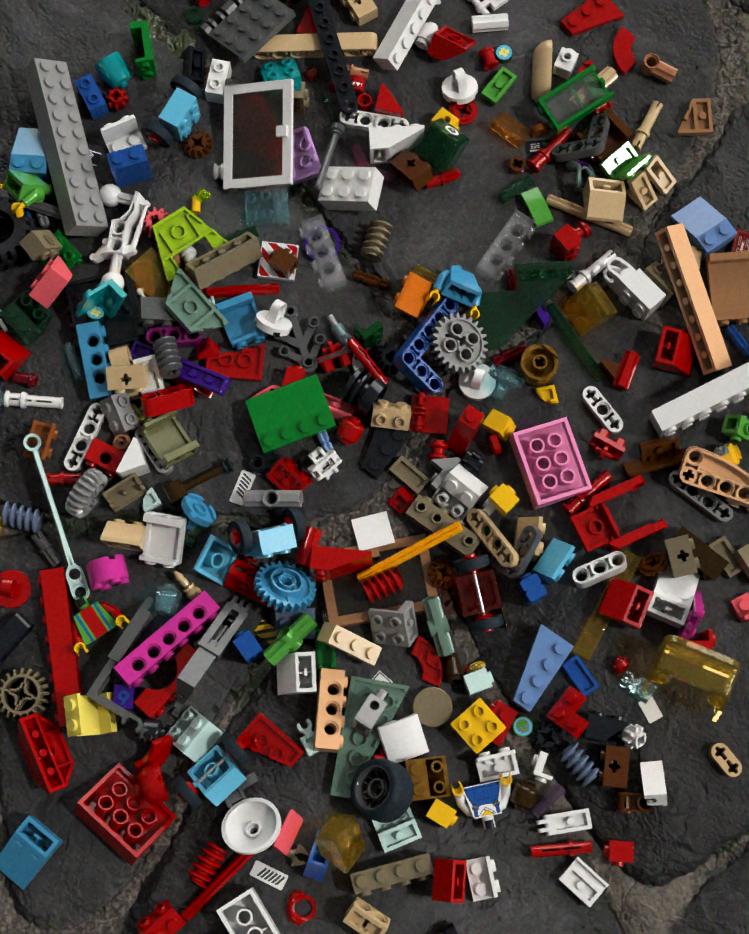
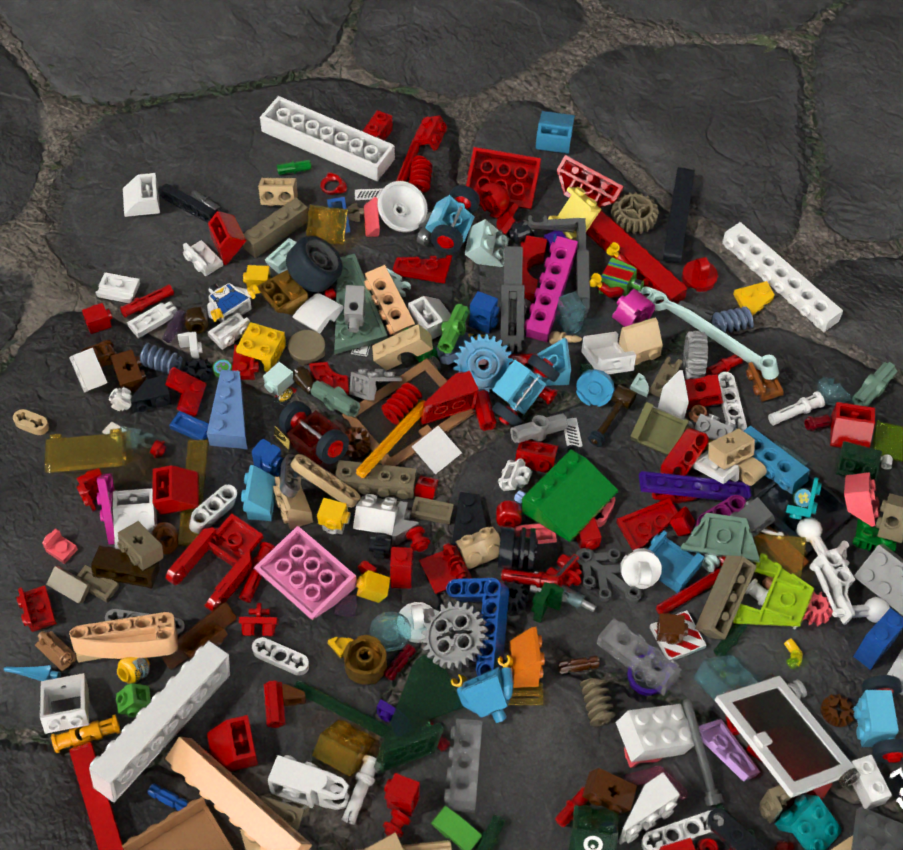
camera: 150 degrees right, 20 degrees down
(167, 357) = (710, 482): dark grey piece -> none

